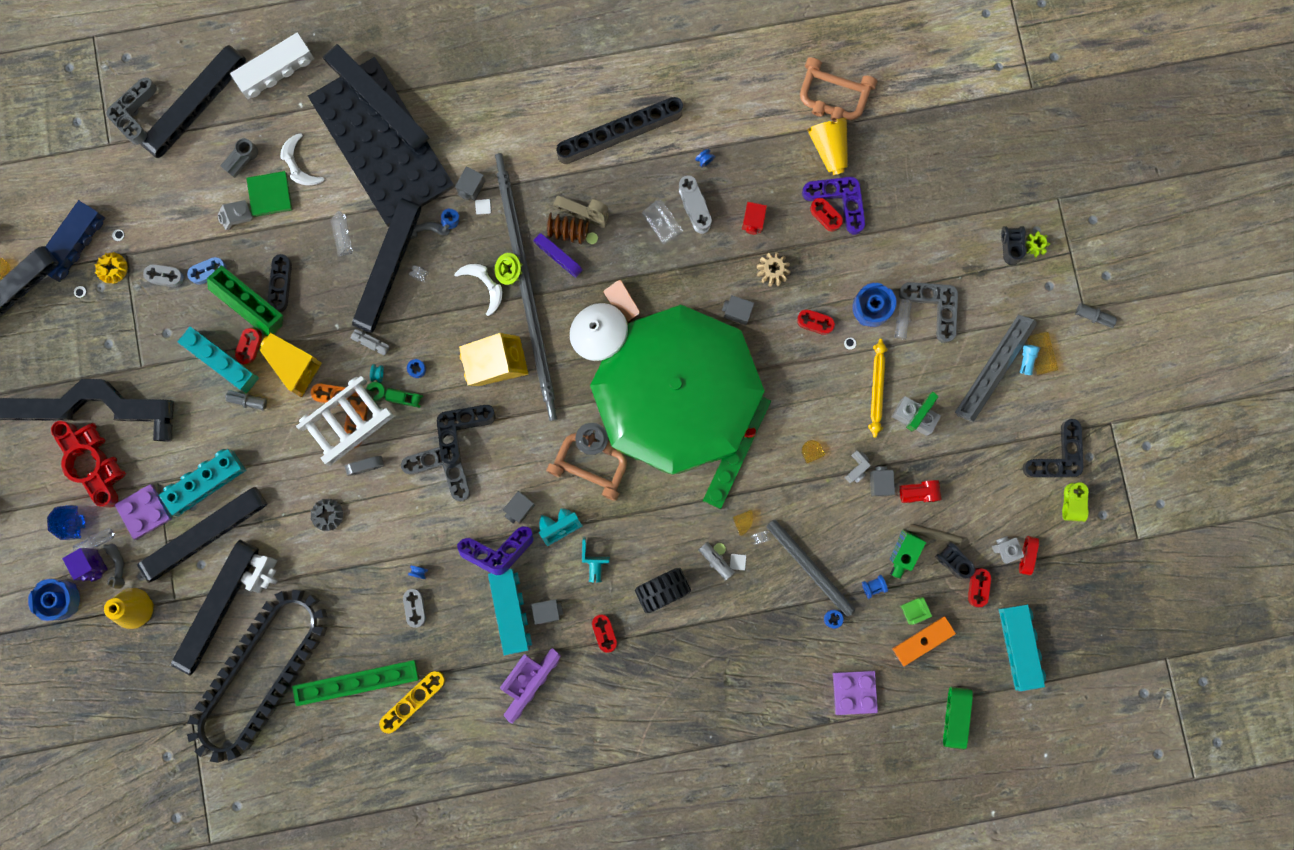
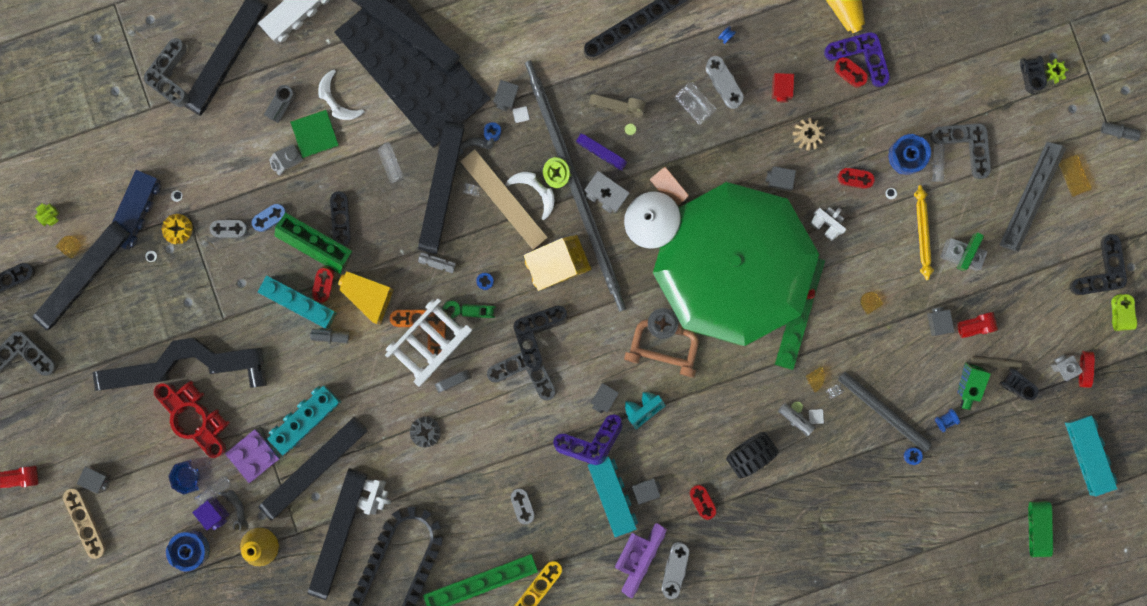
camera: 10 degrees left, 5 degrees up
(376, 373) = (448, 291): teal bush -> none
(418, 572) = (520, 472): blue bush -> none
(450, 288) = (503, 199): none -> tan tile
(551, 286) = (601, 182): none -> light grey brick
(563, 701) = (675, 570): none -> light grey piece
(567, 229) = (606, 124): reddish brown piece -> none
(595, 563) = (683, 438): teal bracket -> none
(786, 369) = (822, 217): none -> white hips
(855, 692) = (942, 520): medium lavender plate -> none
(858, 472) = (916, 317): light grey bracket -> none
(916, 610) = (988, 437): bright green panel -> none
(934, 634) = (1008, 455): orange tile -> none
(984, 588) = (1049, 406): red beam -> none
(1029, 354) = (1063, 179): medium azure pin -> none

